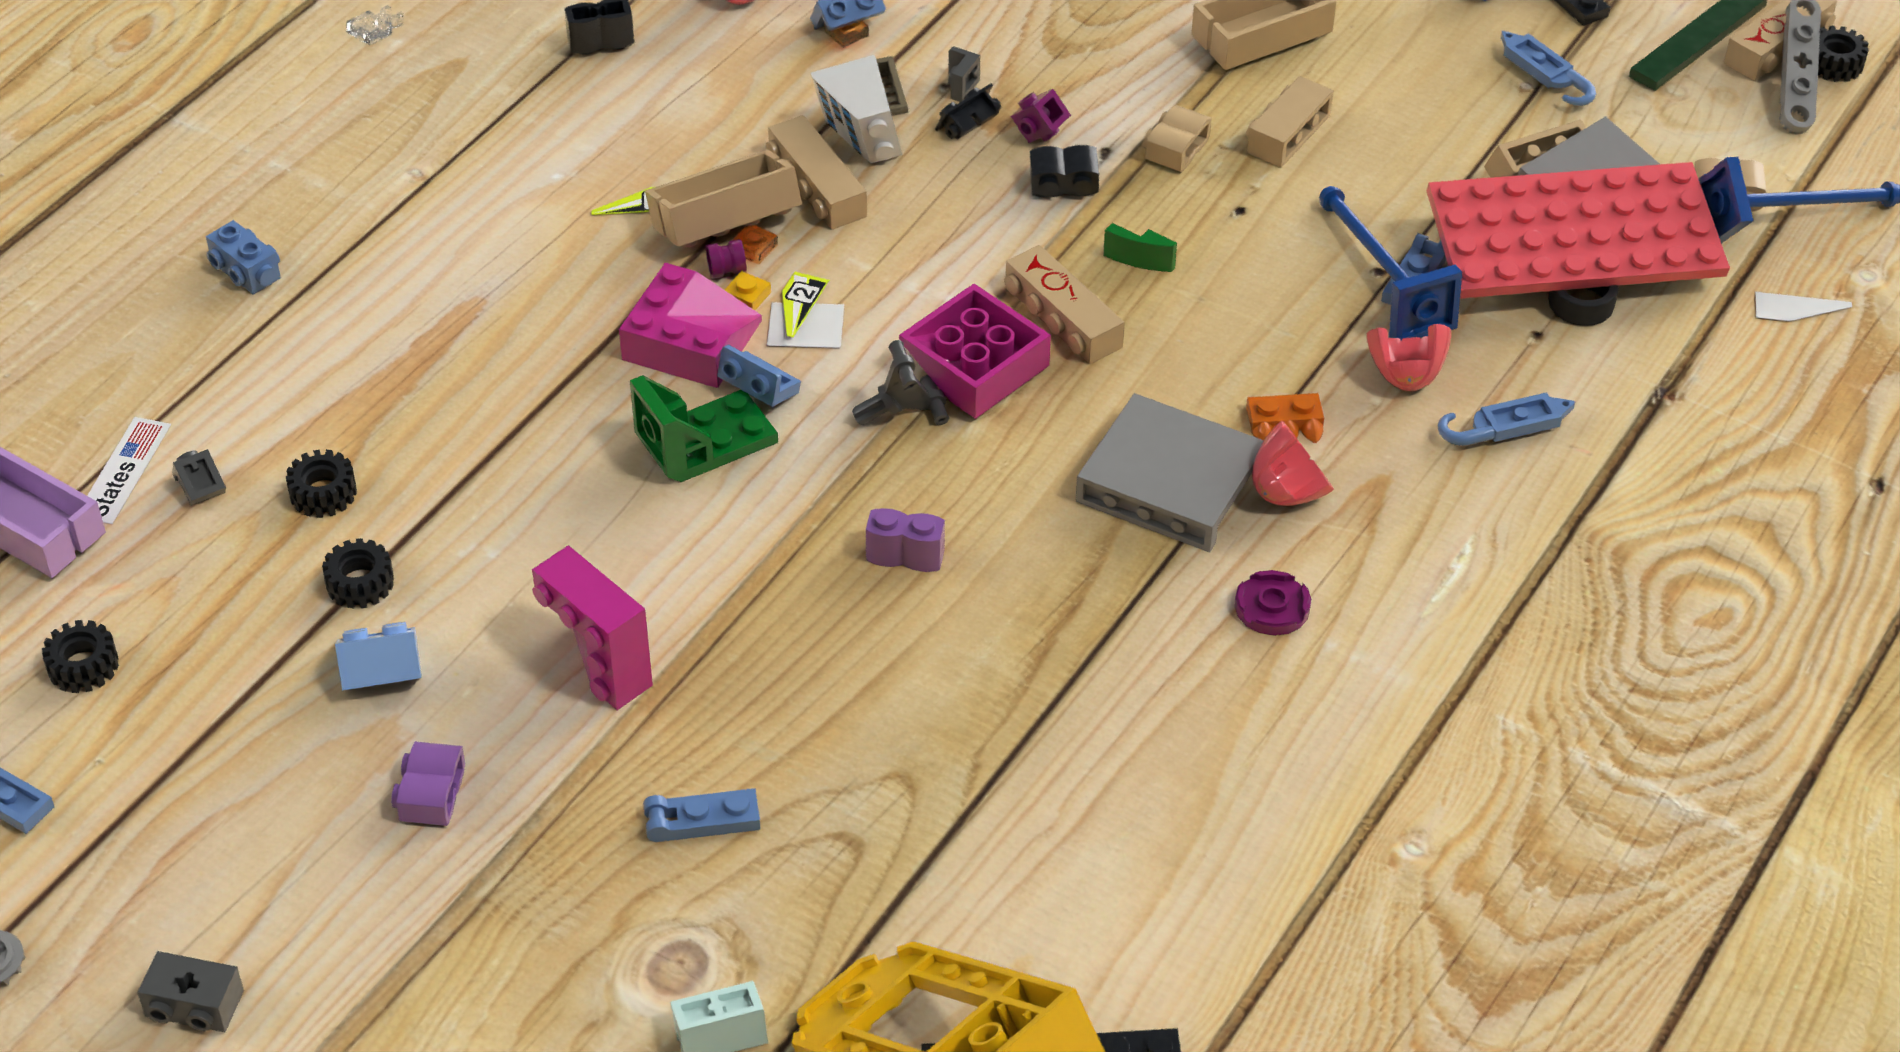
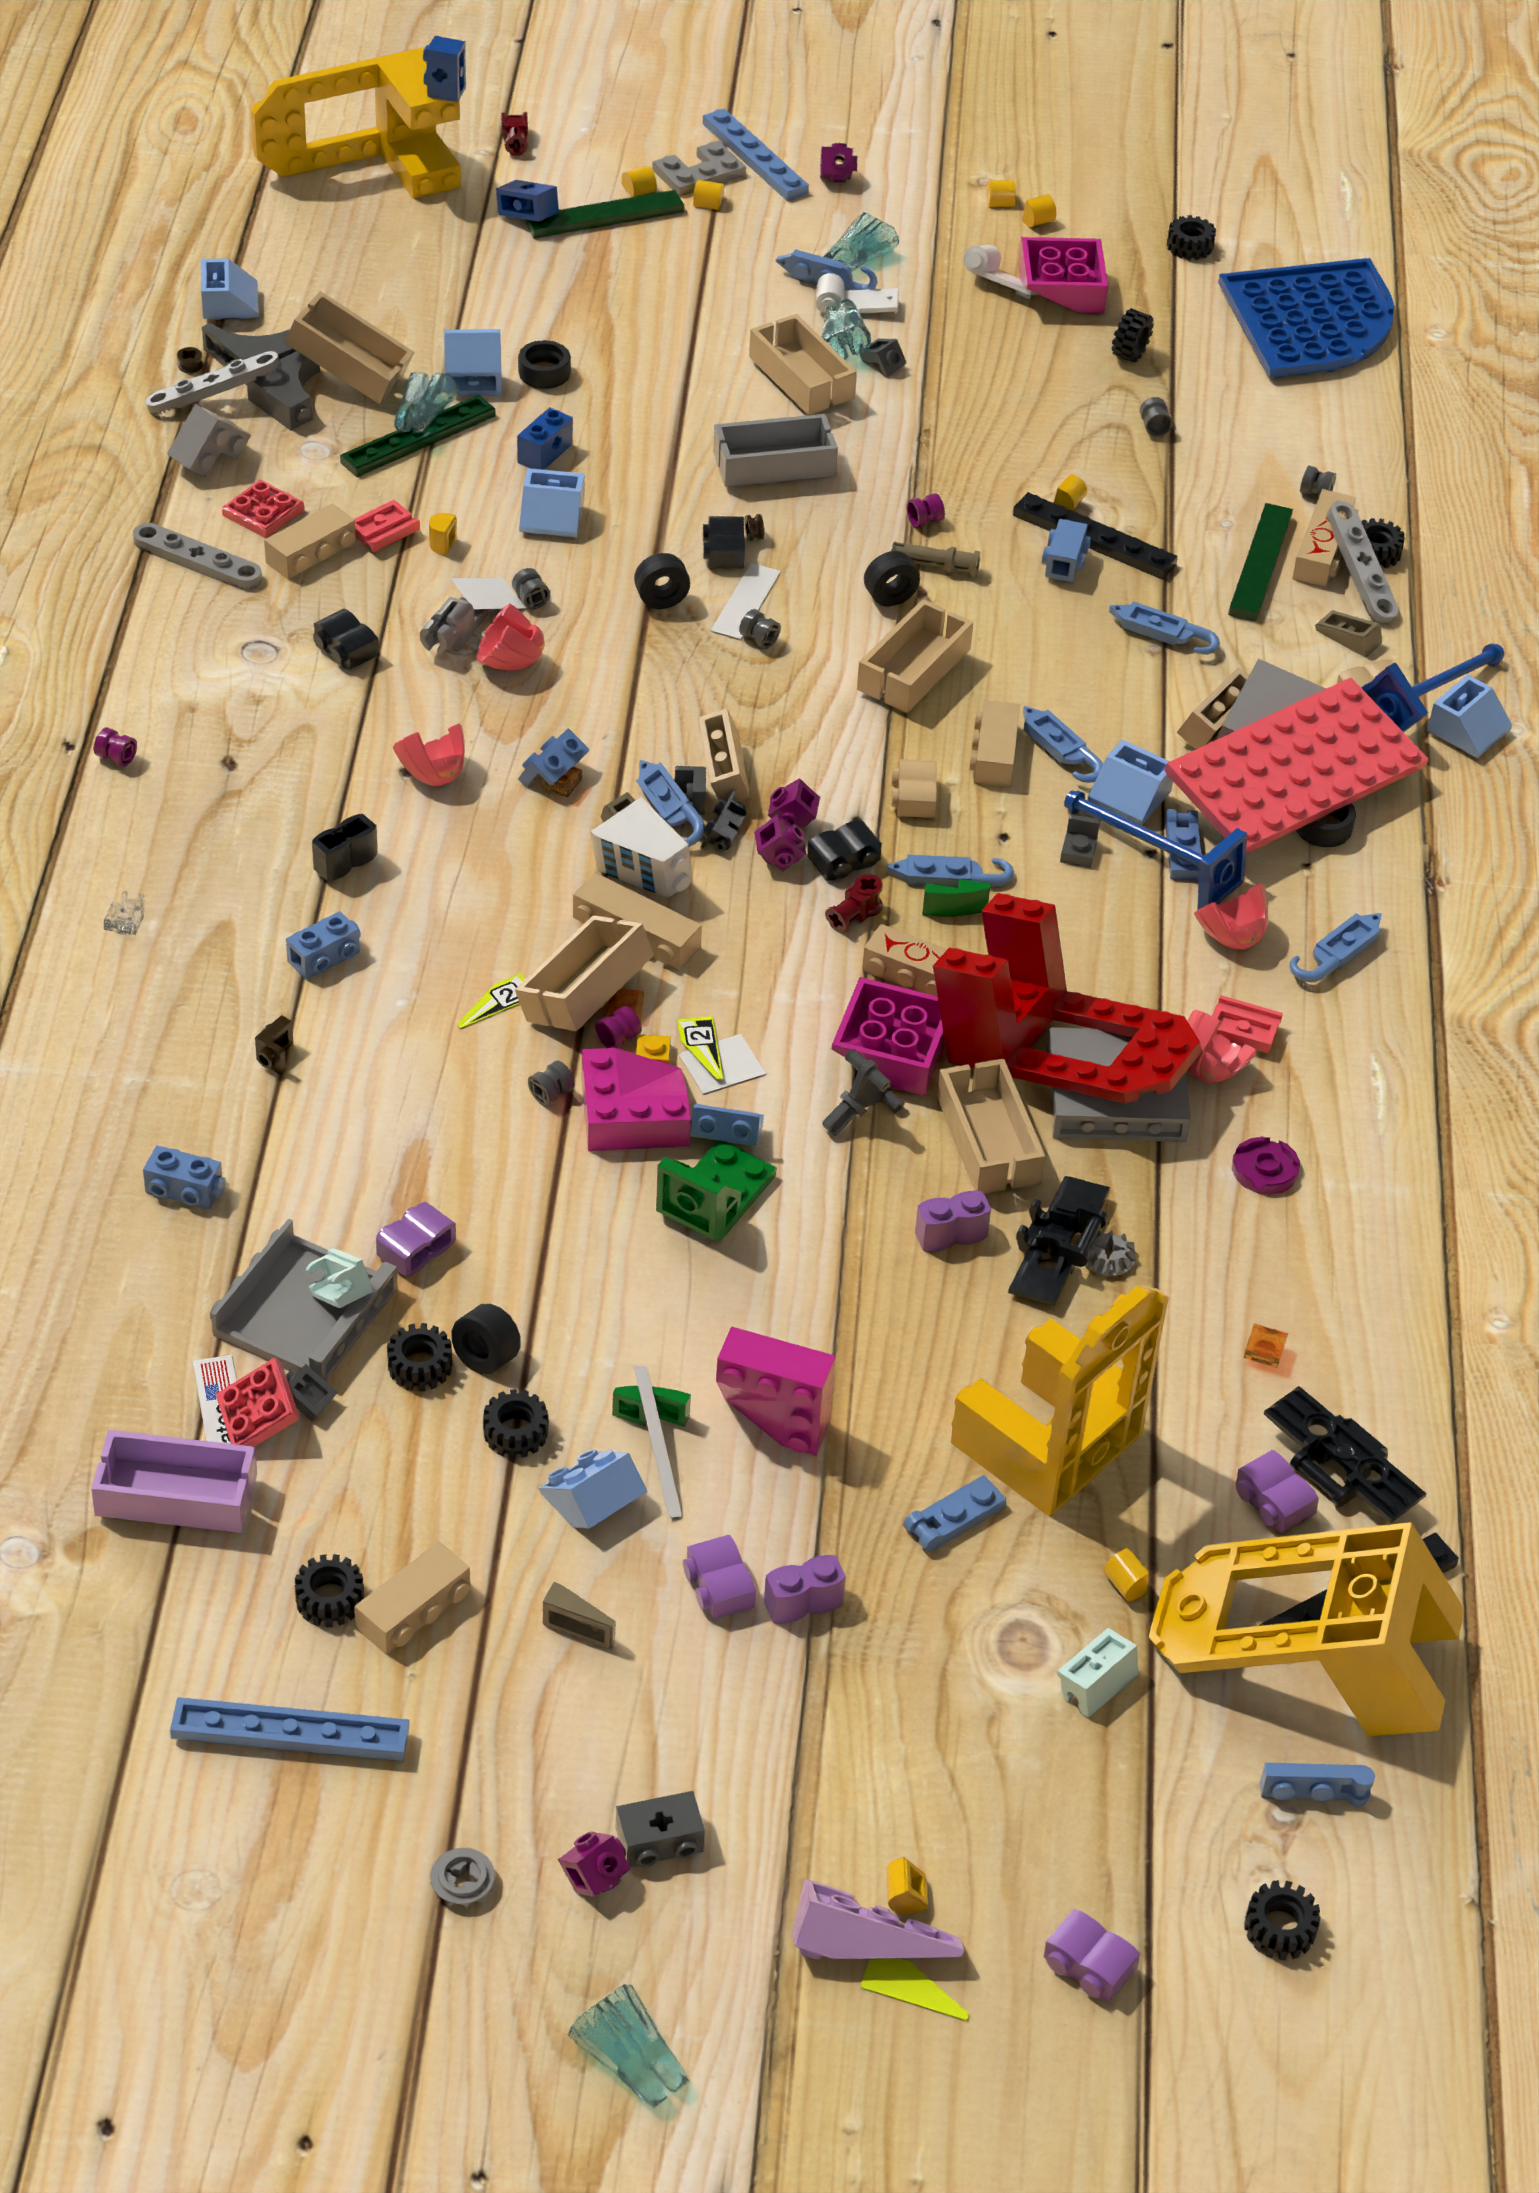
camera: 30 degrees left, 0 degrees up
(93, 1008) = (595, 1863): none -> magenta brick
(142, 471) = (258, 1405): none -> coral tile
(143, 691) = (412, 1598): none -> tan brick
(258, 400) = (277, 1317): none -> light grey panel
(269, 765) = (577, 1617): none -> dark tan slope
(294, 389) = (343, 1278): none -> light aqua hinge
(385, 487) = (486, 1338): none -> black tyre
(398, 379) = (415, 1238): none -> medium lavender brick
(410, 171) = (273, 1043): none -> dark brown bracket
(466, 637) = (657, 1441): none -> white sticker
(488, 599) = (671, 1405): none -> green slope
(496, 825) = (804, 1589): none -> medium lavender brick
(520, 102) = (323, 945): none -> medium blue brick
(618, 285) = (550, 1083): none -> dark grey wheel
(821, 941) = (1127, 1575): none -> yellow brick
(876, 787) = (1094, 1400): none -> yellow bracket
(930, 77) = (669, 799): none -> medium blue plate
(1000, 594) = (1072, 1211): none -> black piece
(1002, 144) = (780, 843): none -> magenta brick
(1005, 466) = (990, 1127): none -> tan piece
(1007, 52) = (724, 756): none -> tan brick
(1036, 920) = (1276, 1491): none -> medium lavender brick
(1039, 222) = (860, 902): none -> dark red connector
(1048, 638) = (1120, 1261): none -> light grey gear
(1080, 373) = (1007, 999): none -> red bracket
(1136, 774) = (1265, 1345): none -> clear orange plate
(1140, 216) = (947, 871): none -> medium blue plate
(1143, 908) = (1351, 1448): none -> black piece
(1295, 410) = (1174, 997): orange plate -> none
(1309, 237) = (1080, 841): none -> dark grey bracket
(1350, 460) = (1247, 1023): none -> coral plate
(1358, 141) = (1060, 741): none -> medium blue plate
(1394, 197) = (1131, 783): none -> light blue slope
(1750, 132) = (1352, 632): none -> dark tan slope
(1794, 307) = (1480, 776): white sticker -> none
(1813, 243) = (1469, 717): none -> light blue slope

